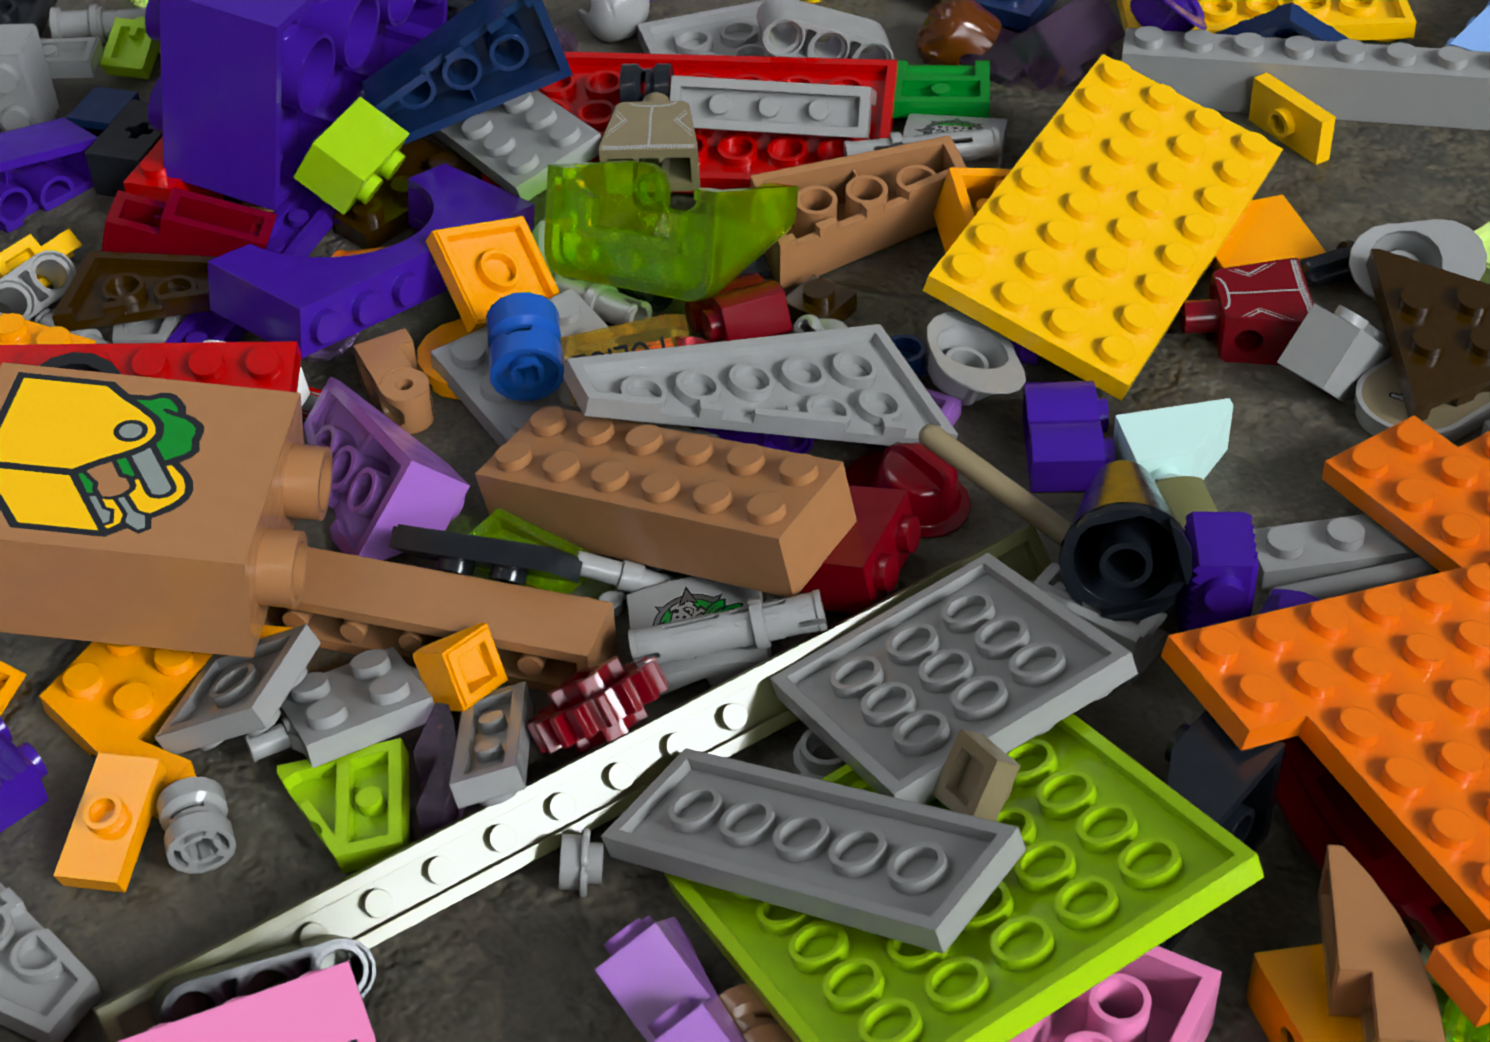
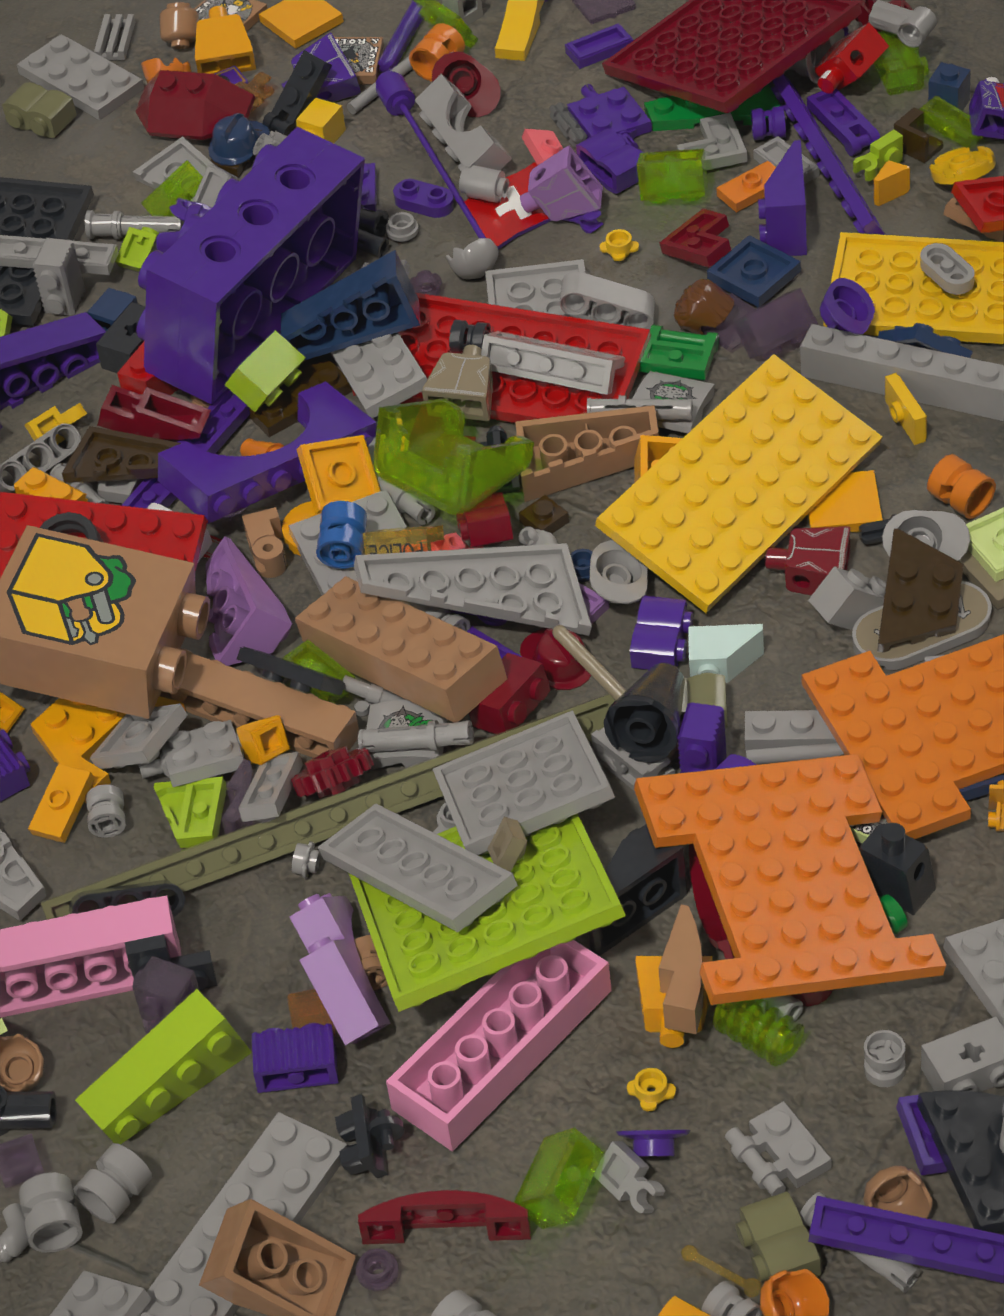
camera: 15 degrees right, 5 degrees up
(1417, 194) = (961, 486): none -> orange wheel

